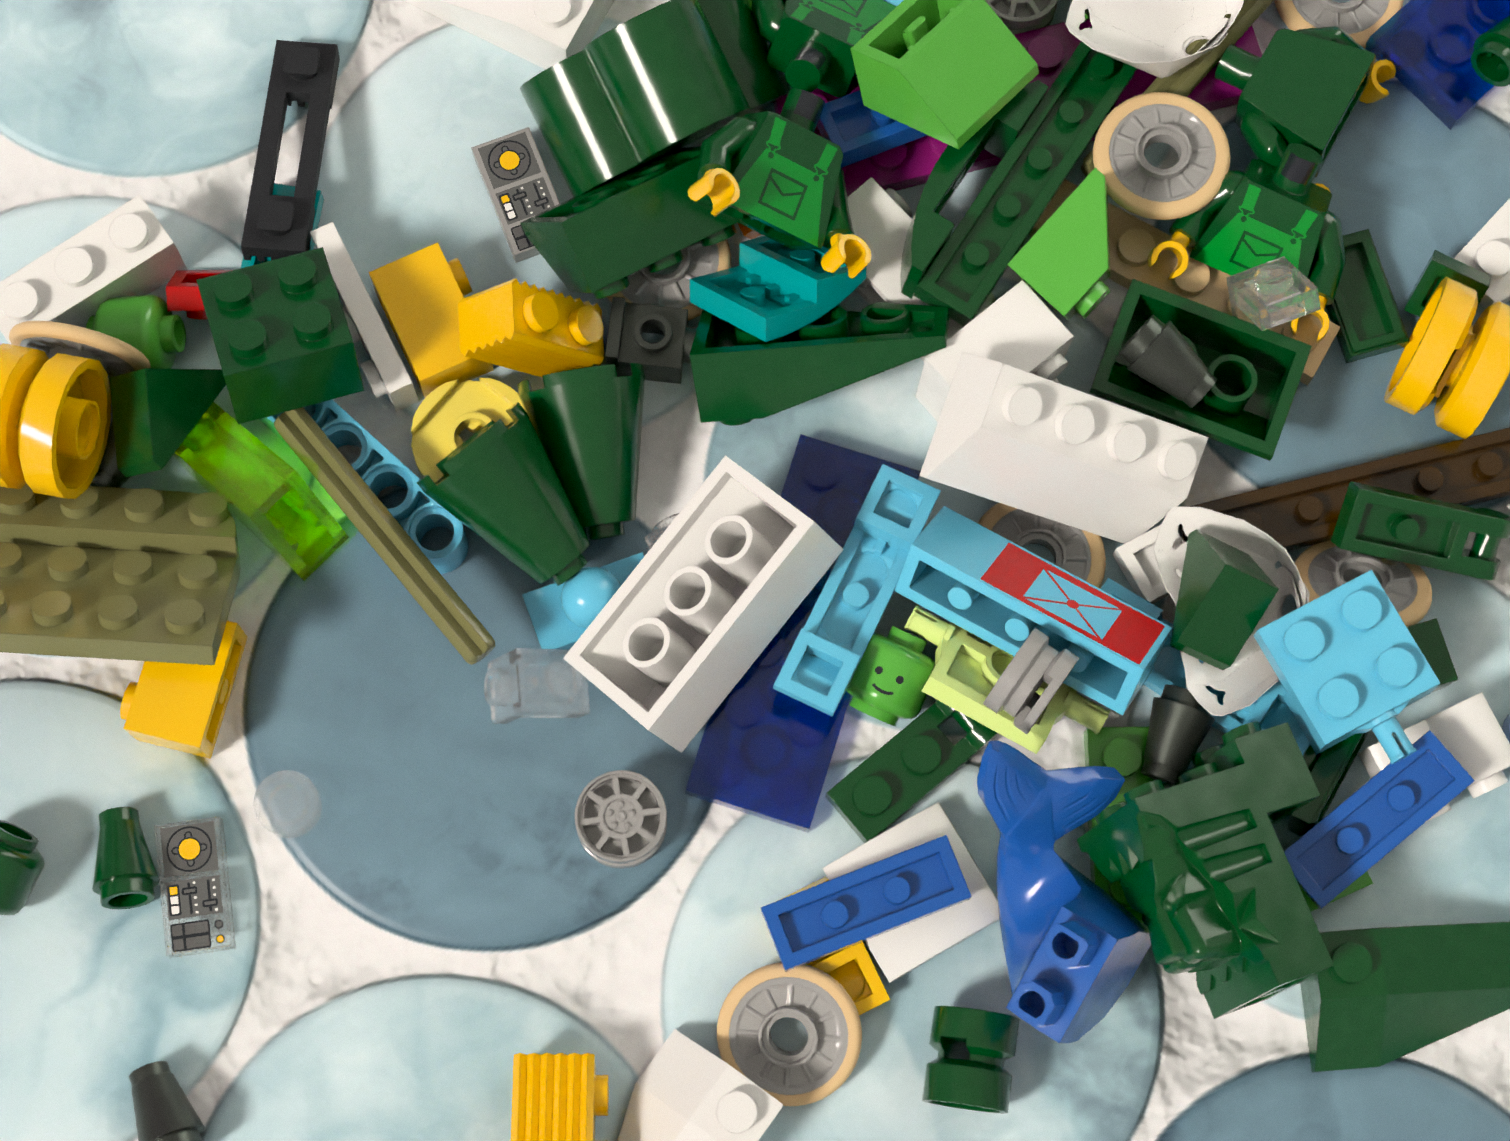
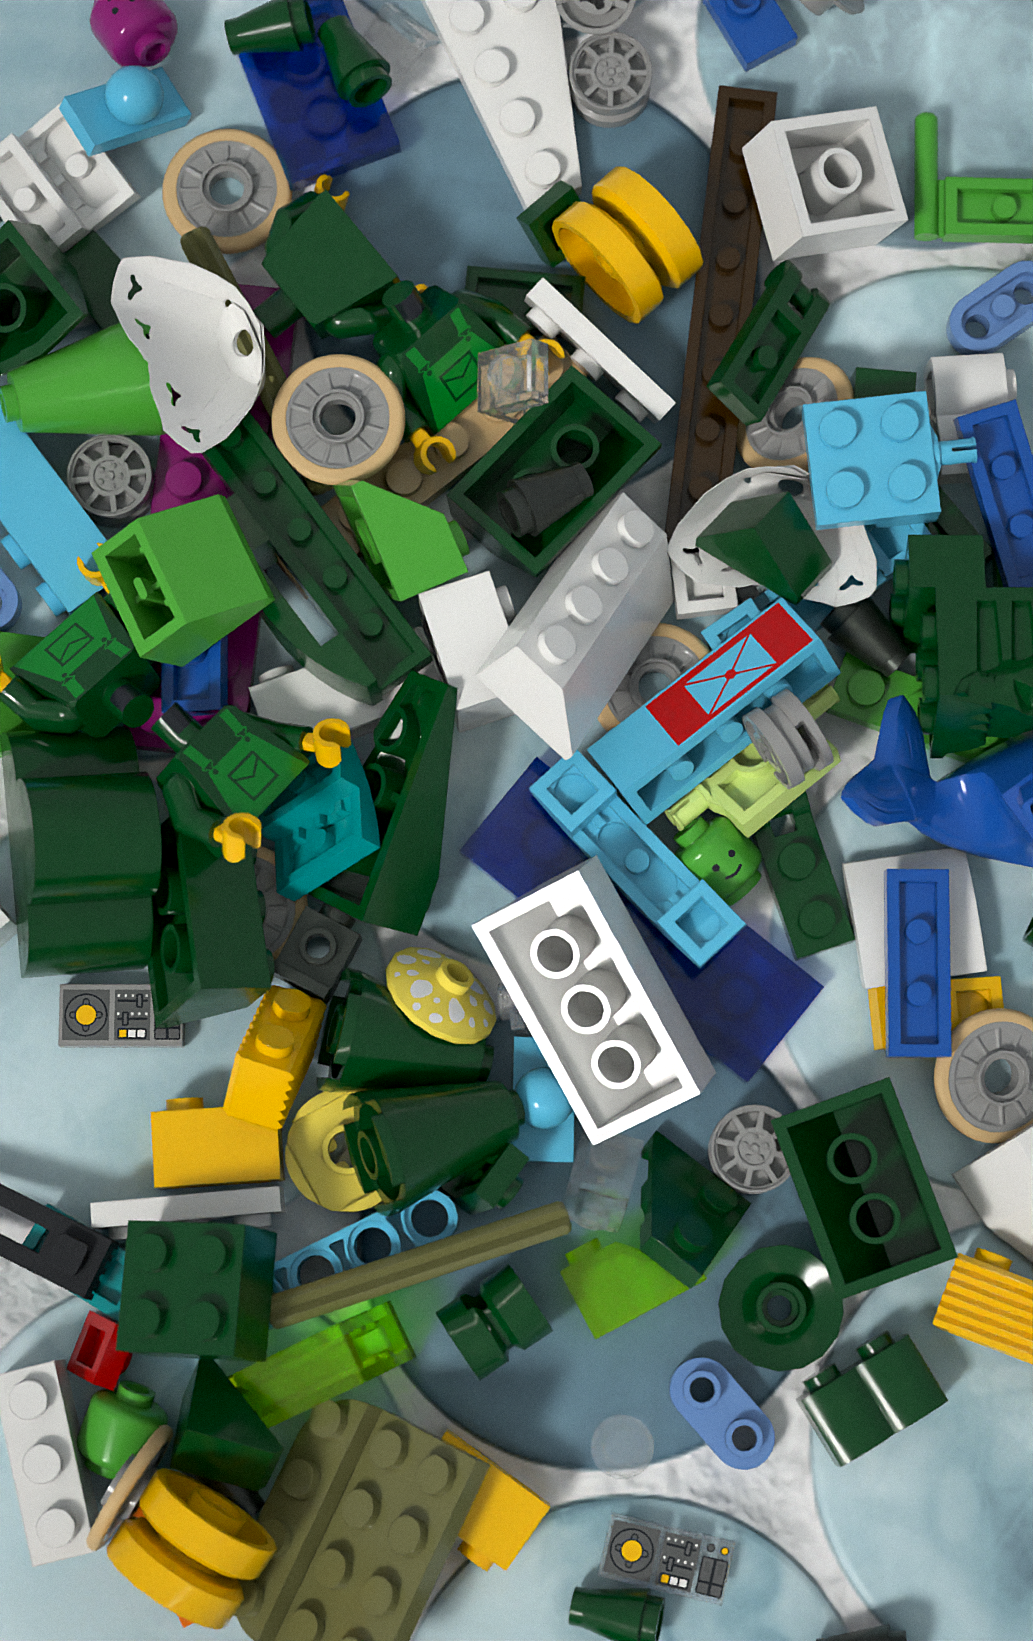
camera: 65 degrees left, 5 degrees up
(357, 888) = (721, 1413): none -> medium blue plate
(366, 637) = (494, 1321): none -> dark green wheel
(420, 1024) = (871, 1397): none -> dark green brick
(442, 740) = (616, 1284): none -> clear neon green slope
(456, 875) = (813, 1313): none -> dark green dish
(491, 573) = (489, 1182): none -> dark green bracket
(532, 773) = (684, 1211): none -> dark green wing
(622, 935) = (864, 1188): none -> dark green slope
(651, 462) = (440, 995): none -> light yellow dish
(1336, 372) = (596, 353): none -> white plate

